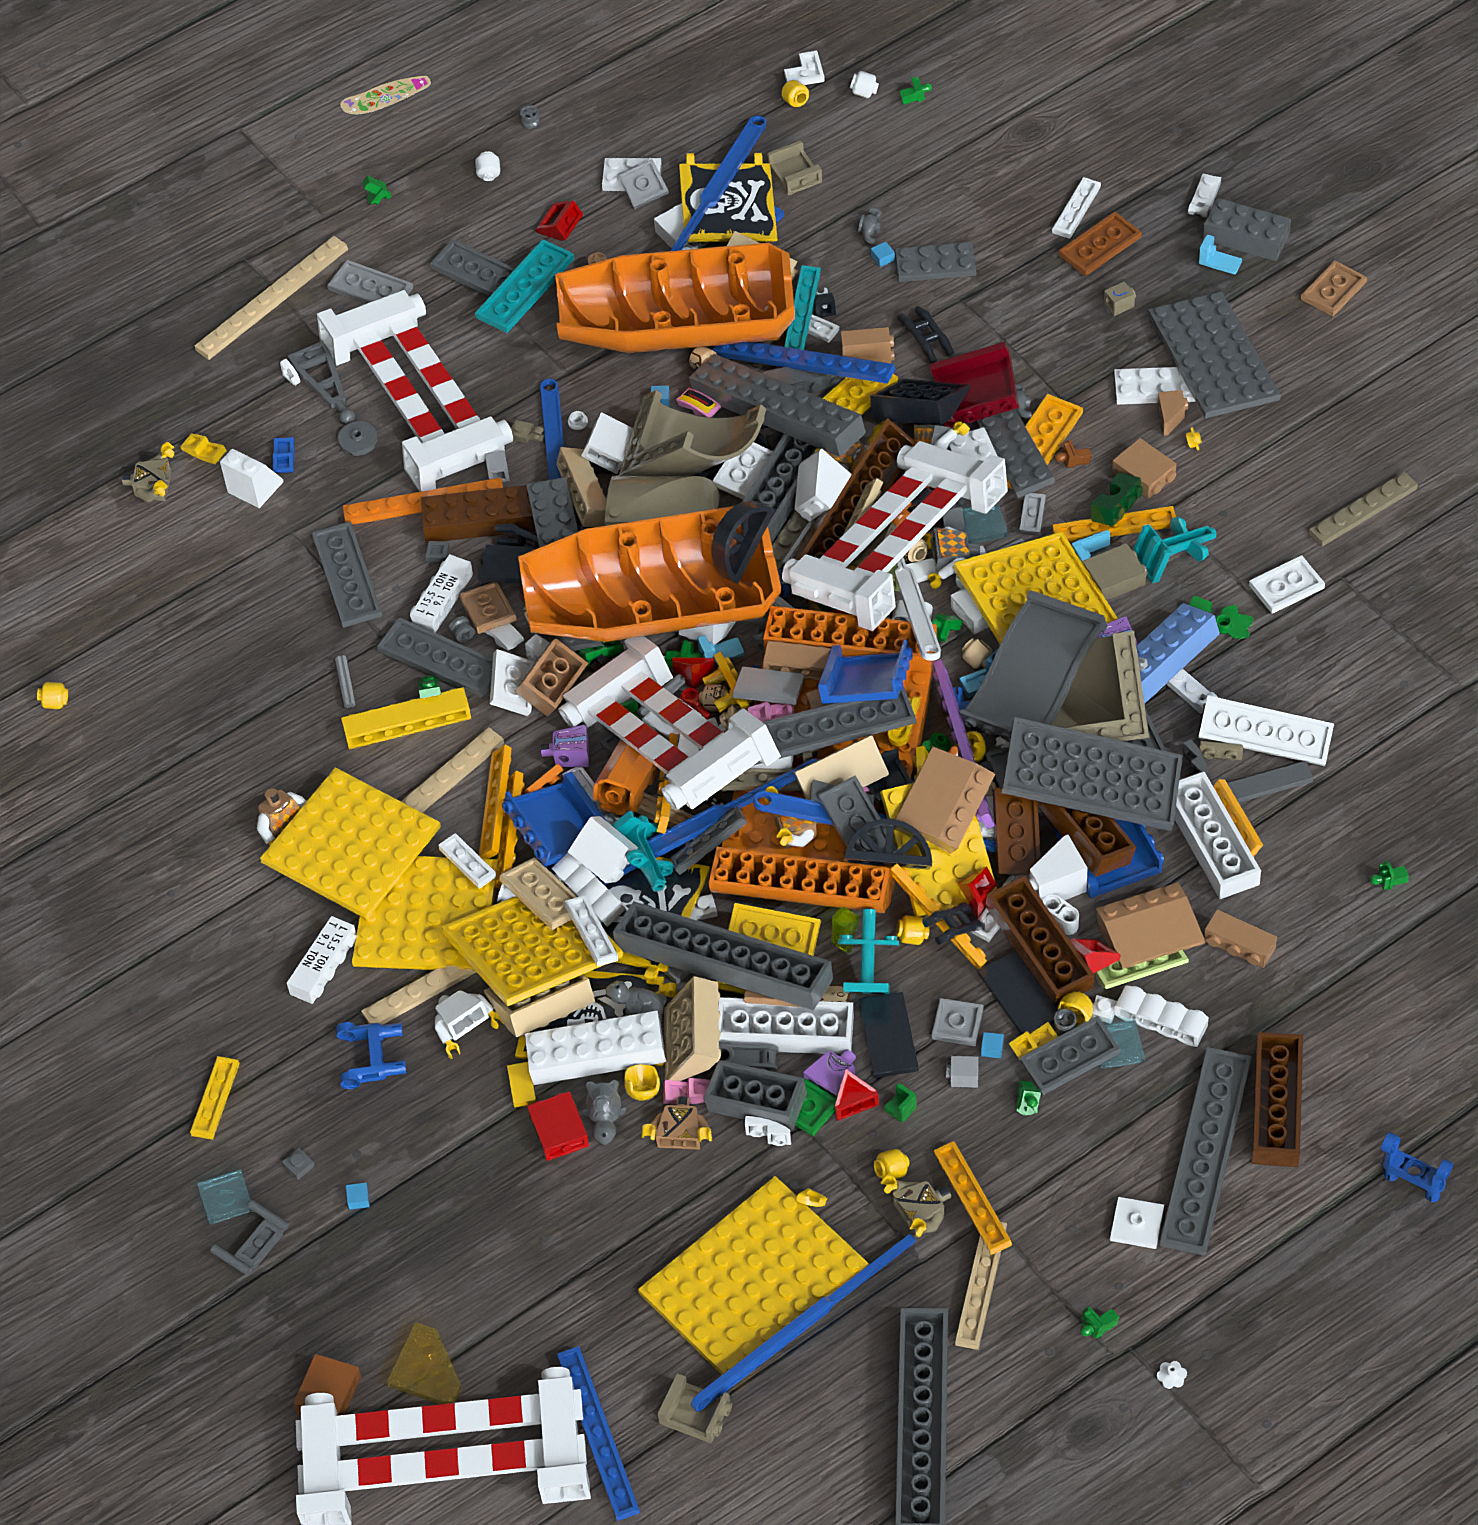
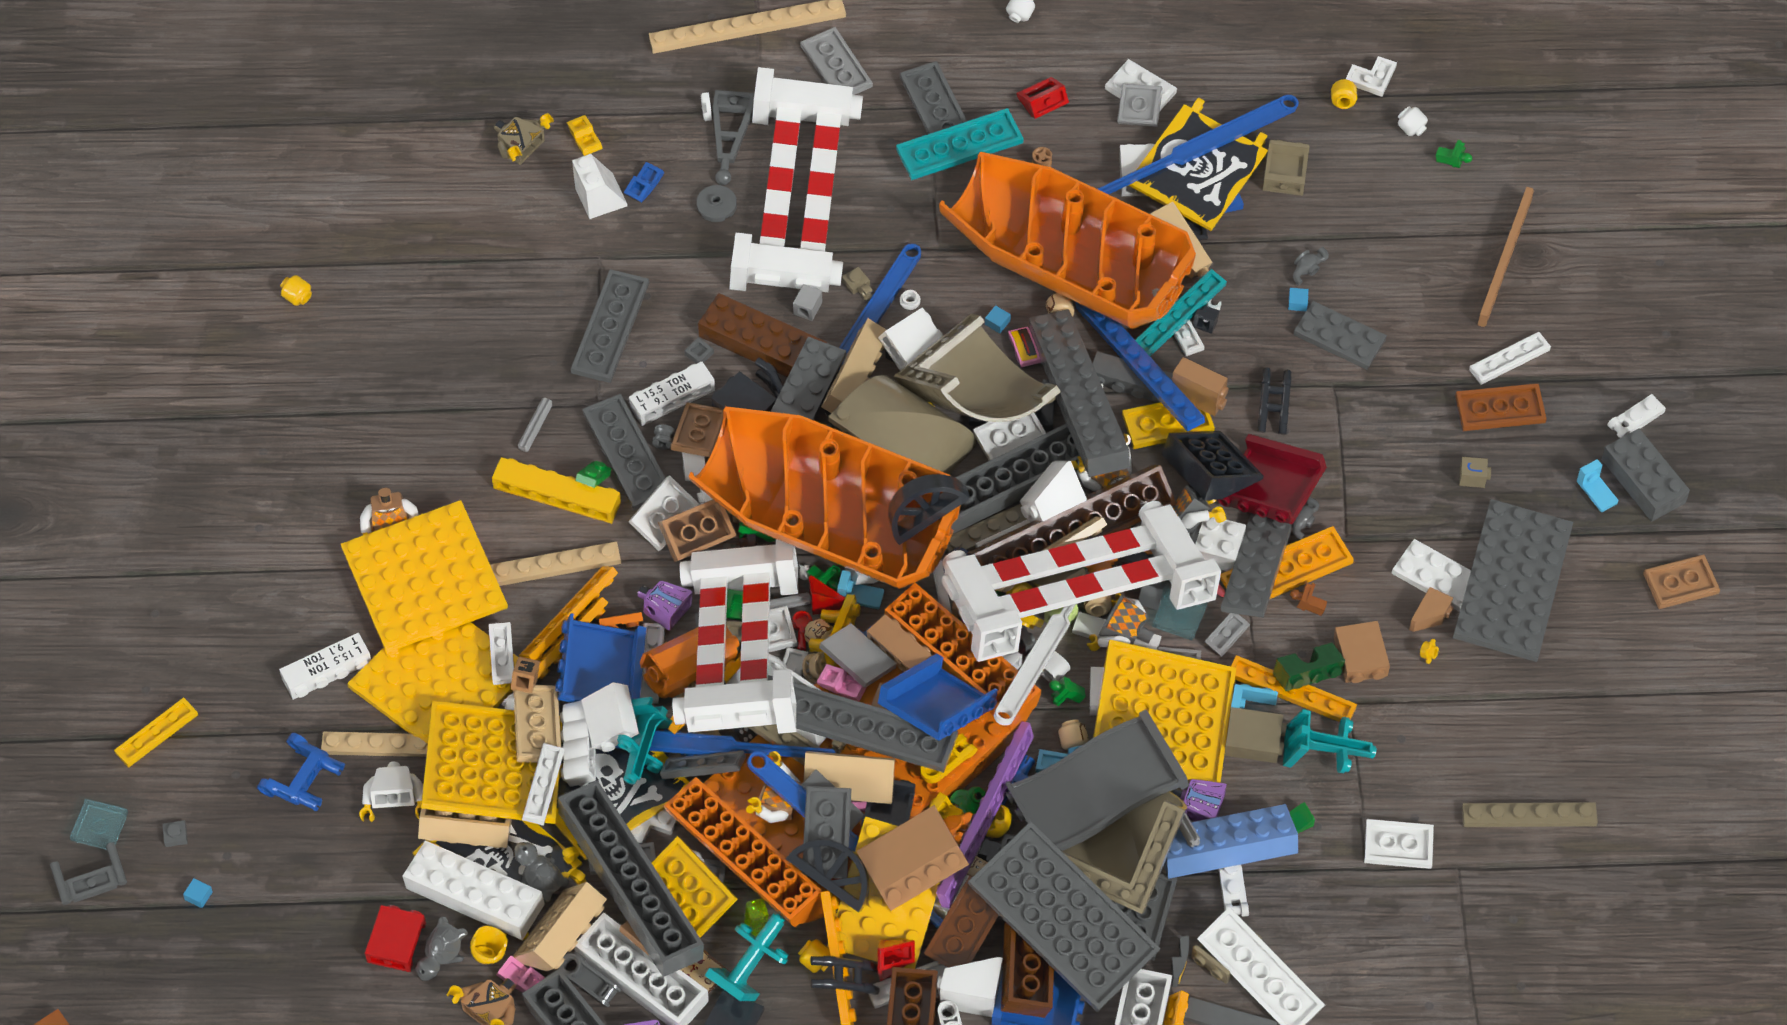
camera: 30 degrees right, 5 degrees up
(407, 503) = (708, 289): orange plate -> none
(505, 860) = (525, 675): none -> medium nougat brick
(521, 1084) = (394, 885): yellow tile -> none
(1015, 139) = (1505, 257): none -> medium nougat tile
(1235, 624) = (1325, 850): green plate -> none

